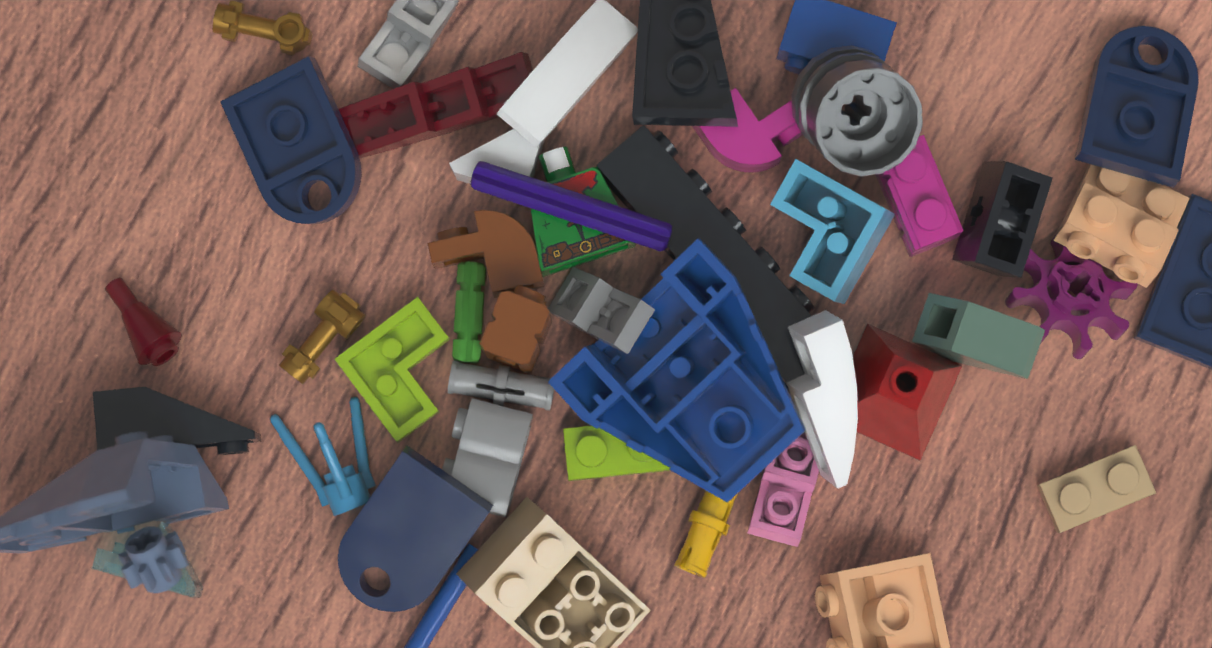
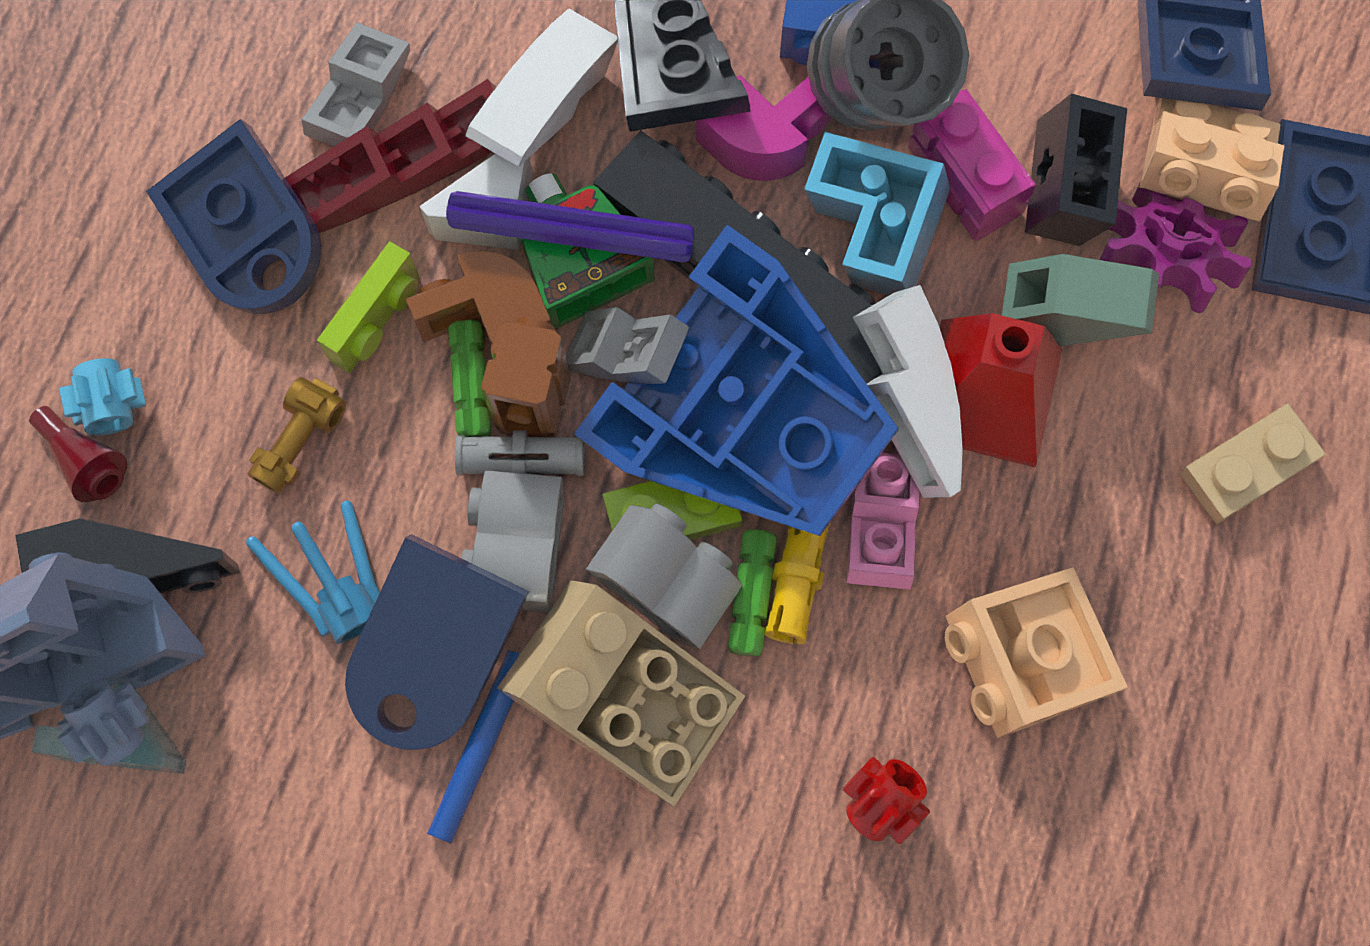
camera: 10 degrees left, 10 degrees down
(168, 281) = (102, 396): none -> medium azure gear
(287, 29) = (213, 101): pearl gold bar -> none
(381, 366) = (373, 454): lime plate -> none
(382, 256) = (359, 322): none -> lime plate
(603, 508) = (665, 574): none -> light grey brick
(670, 529) = (752, 599): none -> bright green axle

